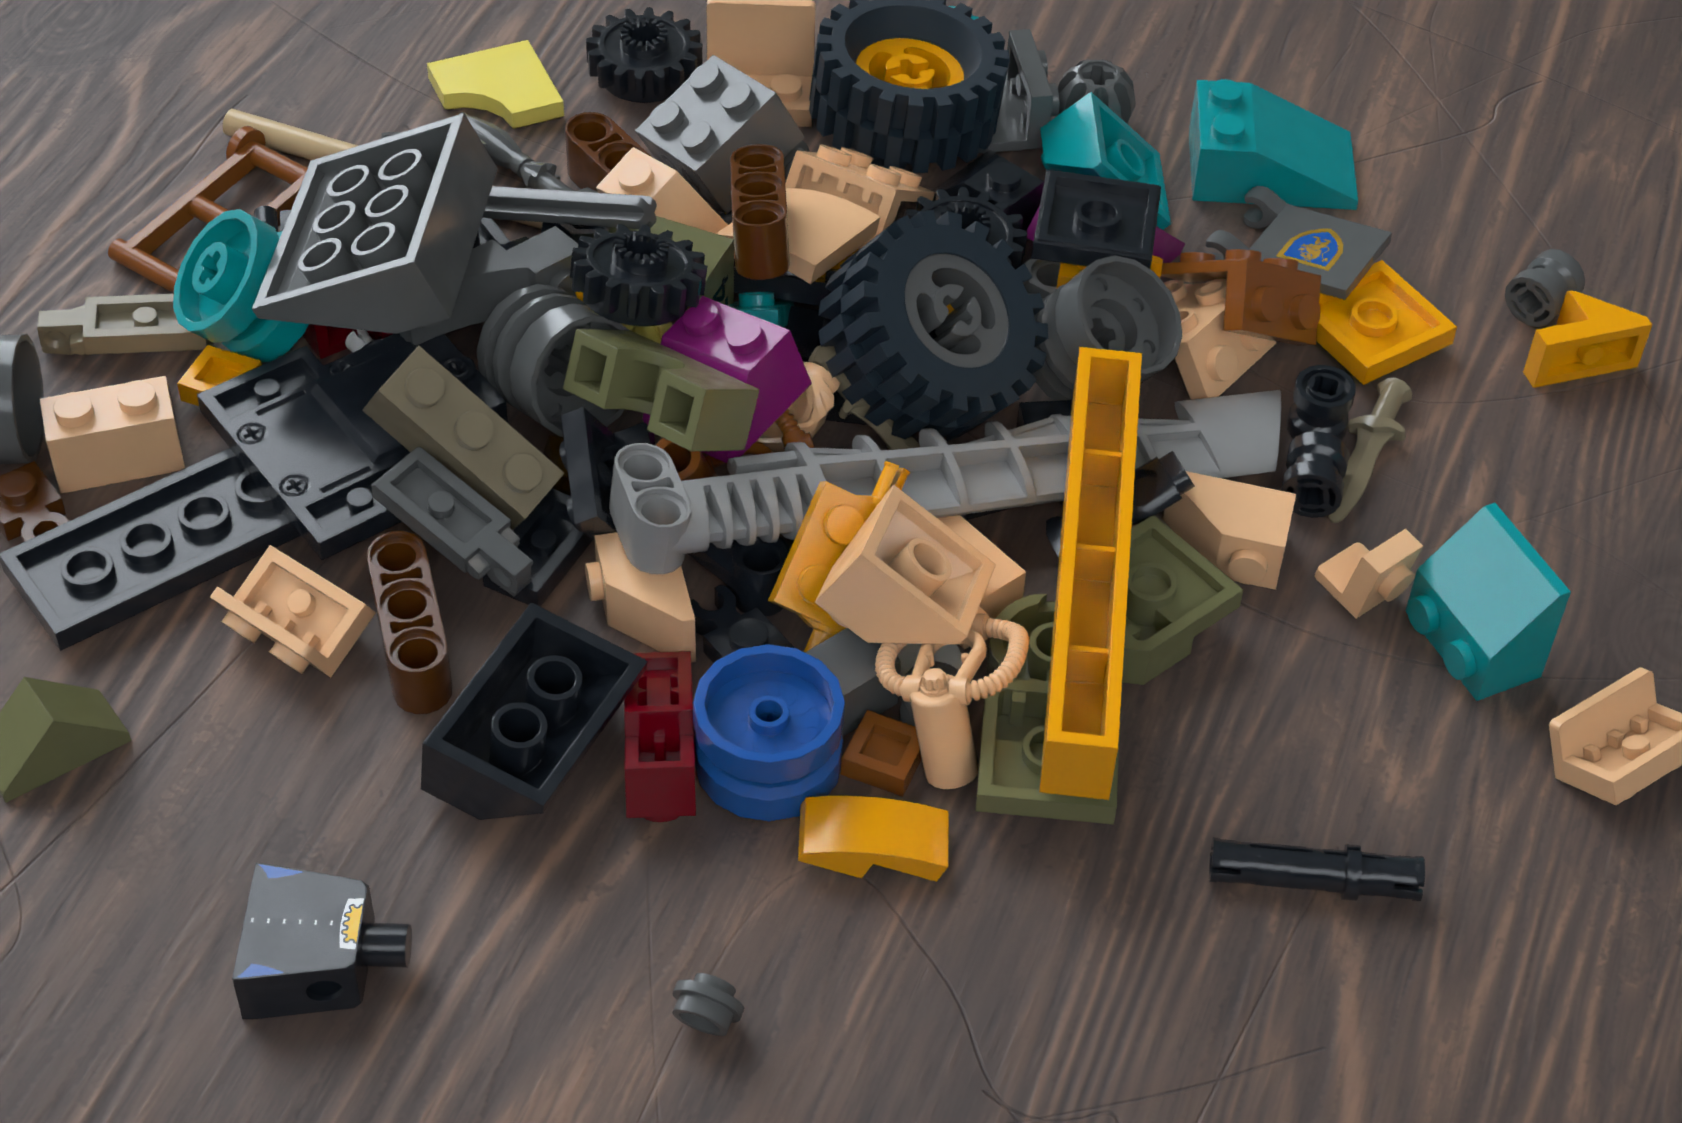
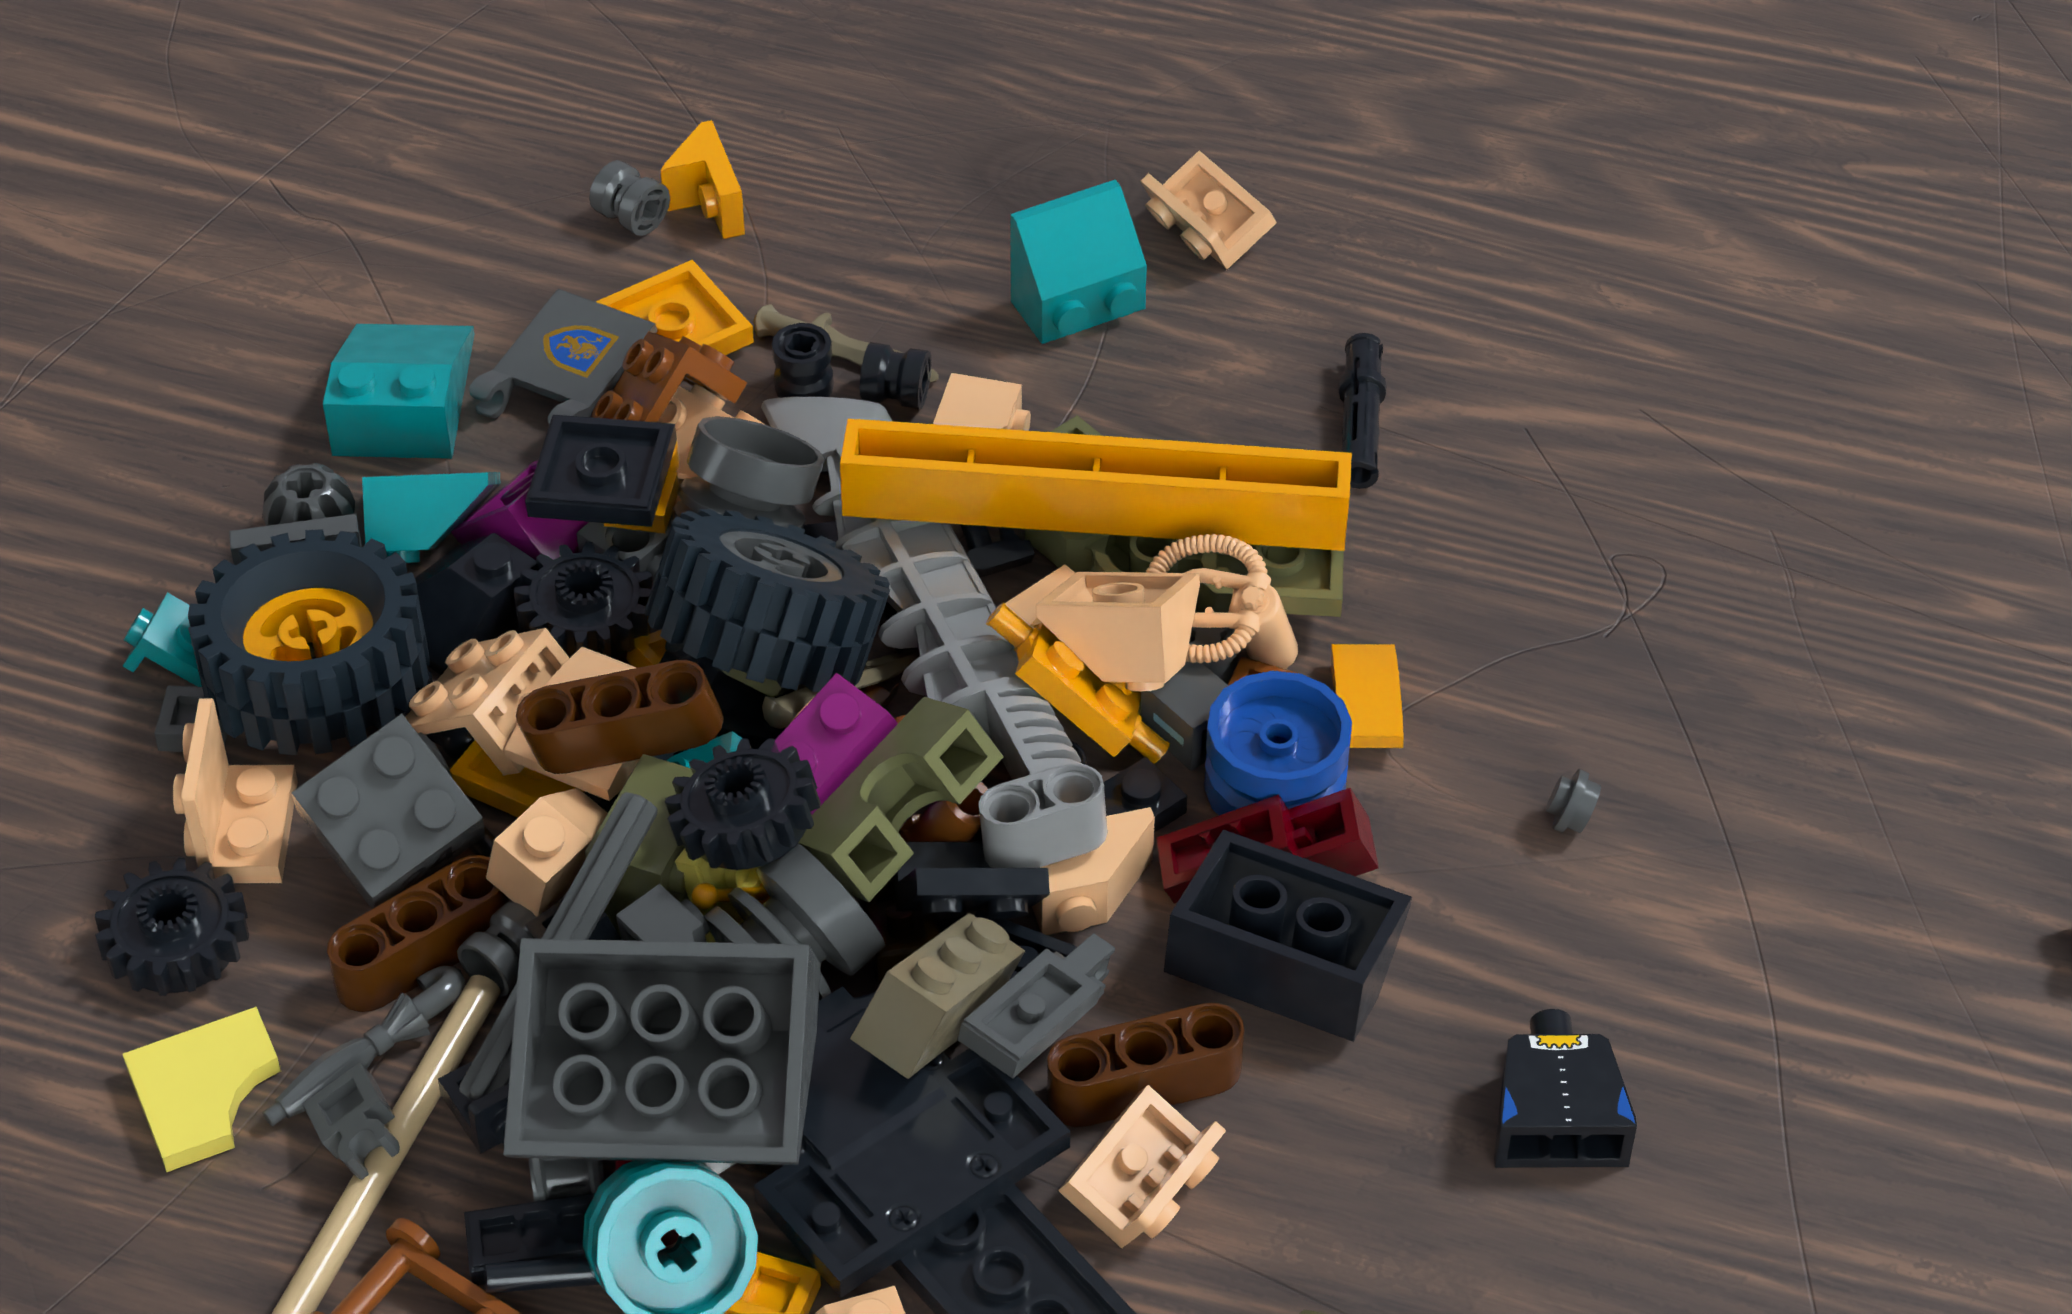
camera: 90 degrees left, 0 degrees up
(1366, 577) = (1034, 341): light nougat bracket -> none

